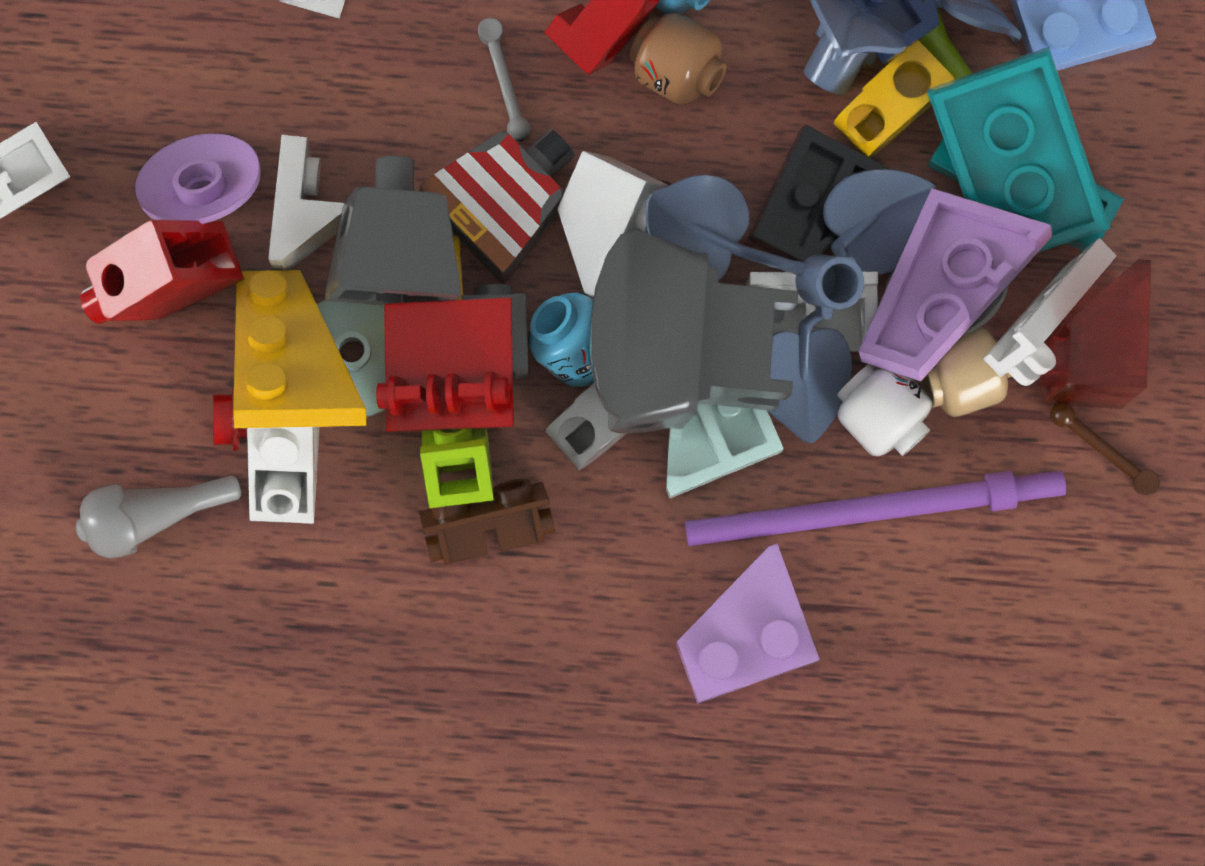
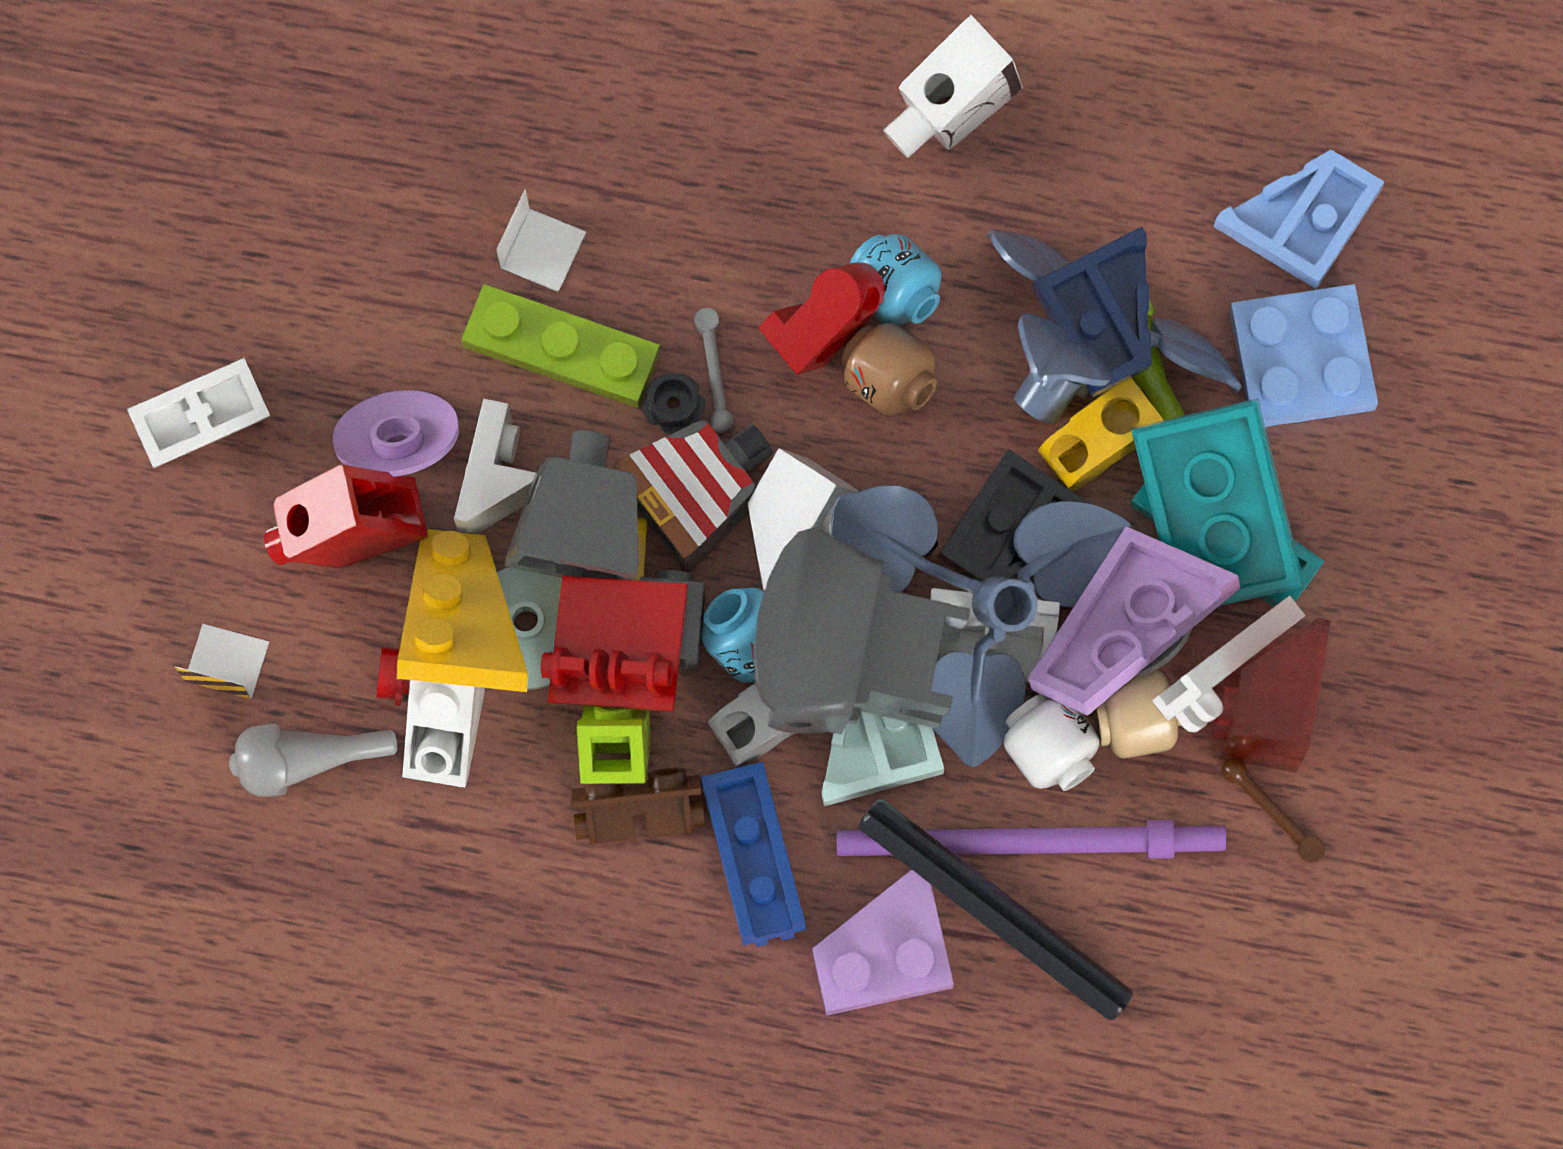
camera: 20 degrees right, 5 degrees down
(58, 426) = (226, 661): none -> white sticker
(349, 72) = (561, 346): none -> lime plate
(468, 100) = (673, 387): none -> black plate
(607, 555) = (753, 854): none -> blue hinge
(851, 581) = (996, 909): none -> black axle

